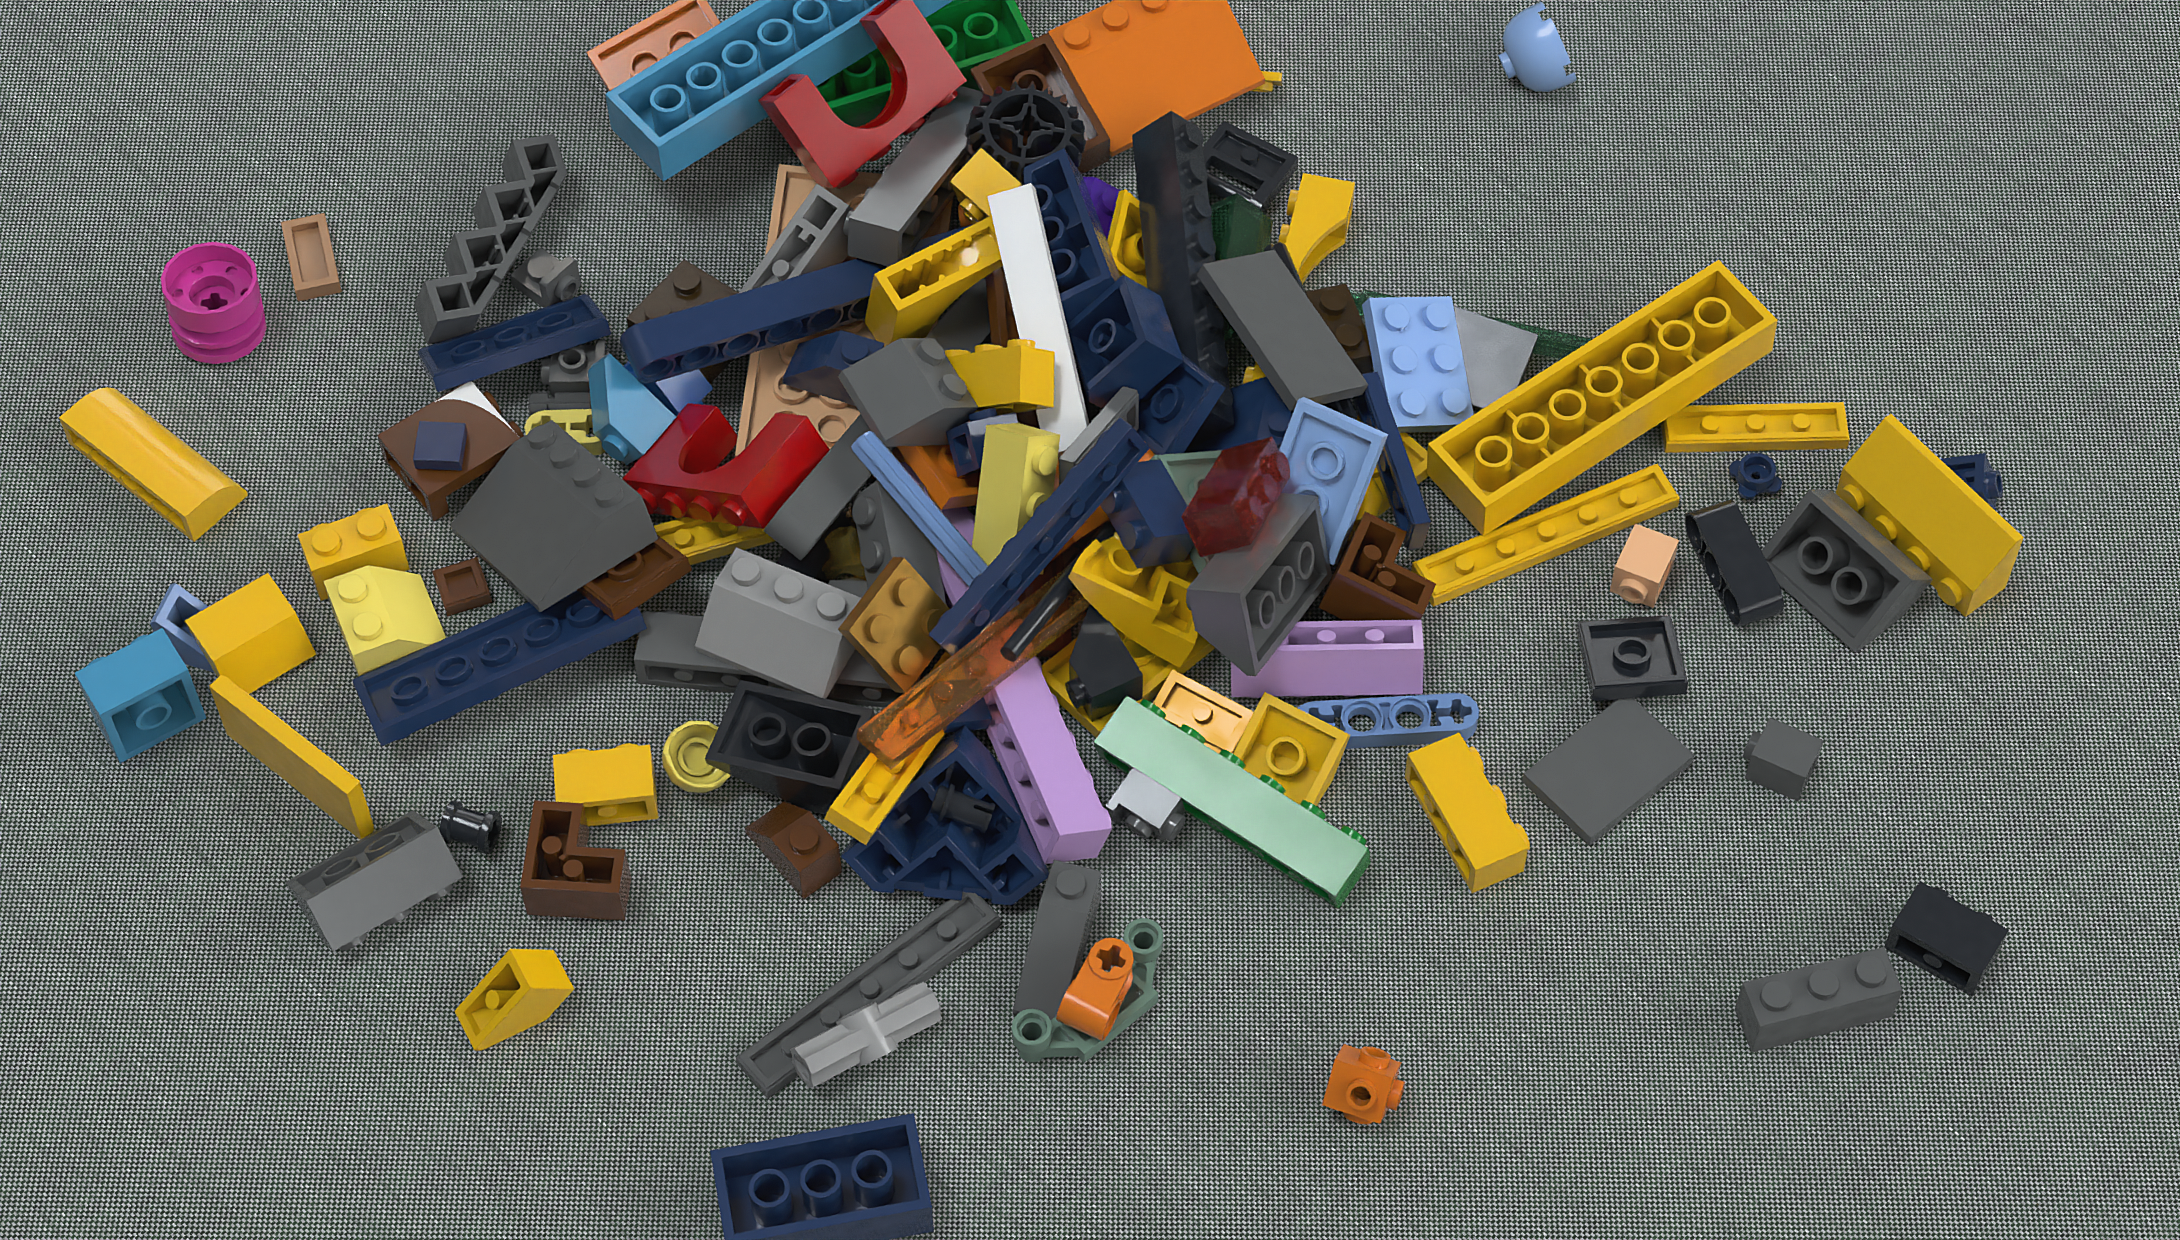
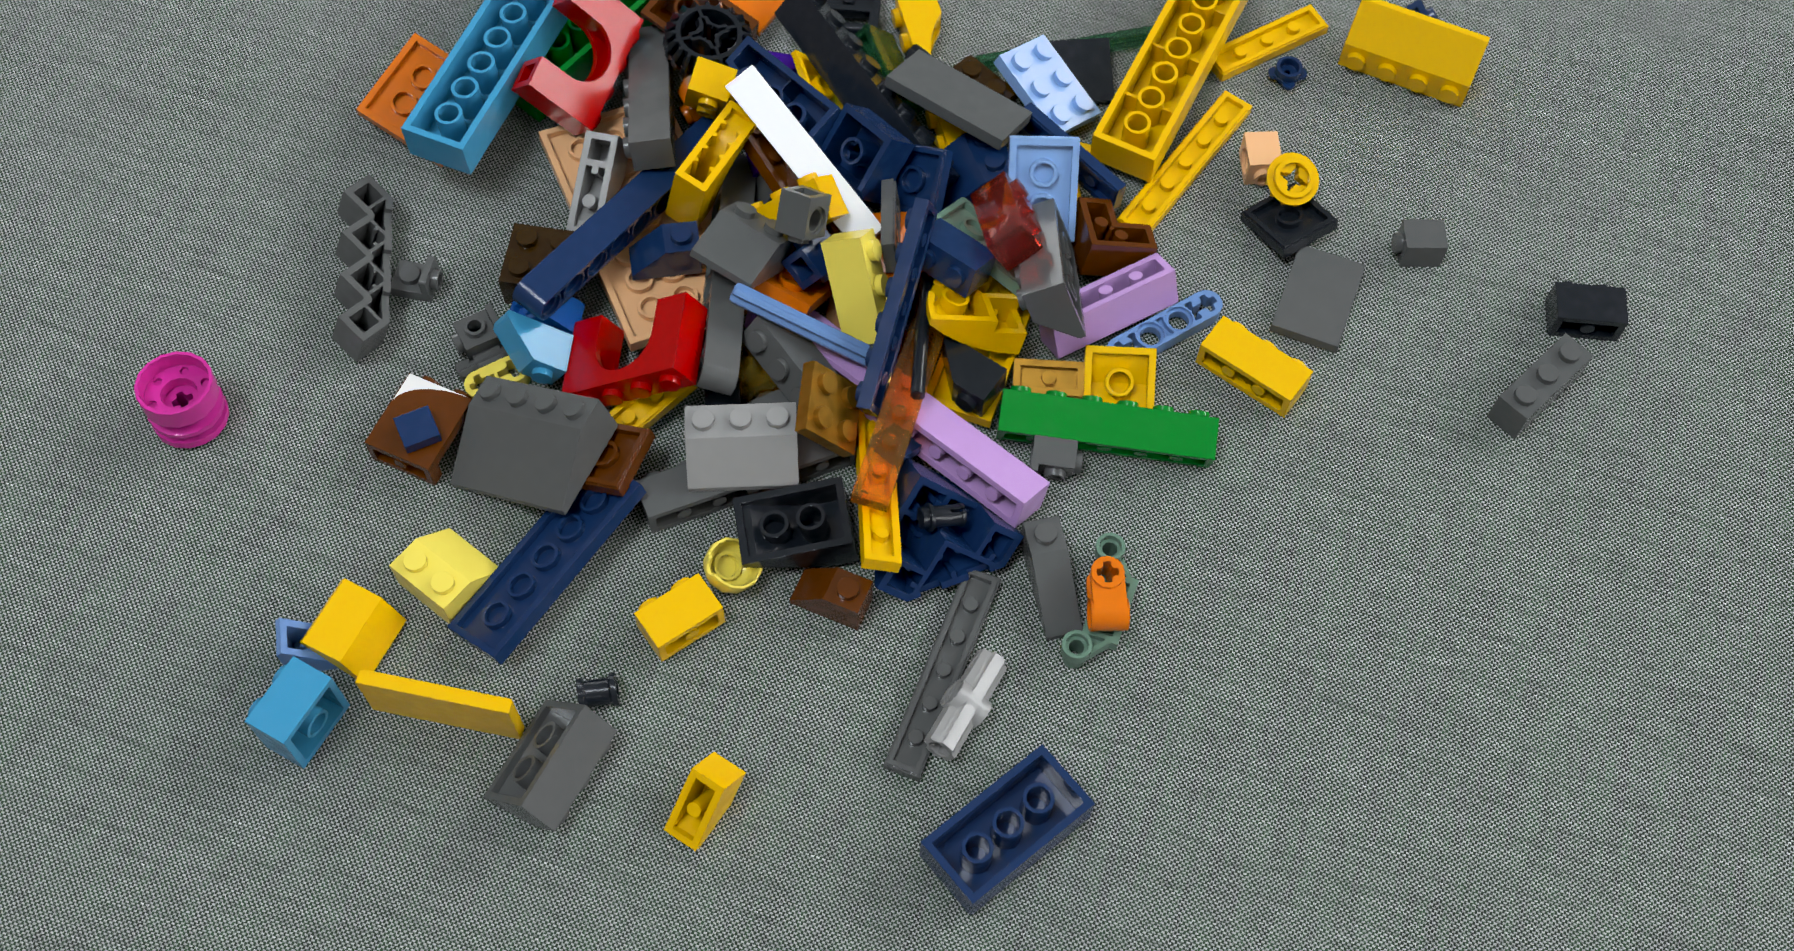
camera: 30 degrees left, 5 degrees up
(150, 461) = (197, 536): yellow brick -> none
(311, 257) = (231, 337): medium nougat tile -> none
(353, 543) = (392, 531): yellow brick -> none
(462, 586) = (485, 522): reddish brown tile -> none
(513, 342) = (422, 334): dark blue tile -> none
(564, 874) = (689, 694): reddish brown brick -> none
(986, 382) = (802, 213): none -> dark grey brick
(1364, 1084) = (1307, 576): orange brick -> none
(1656, 584) = (1305, 175): none -> yellow gear
(1734, 563) = (1312, 132): black beam -> none
(1843, 569) = (1378, 108): dark grey slope -> none

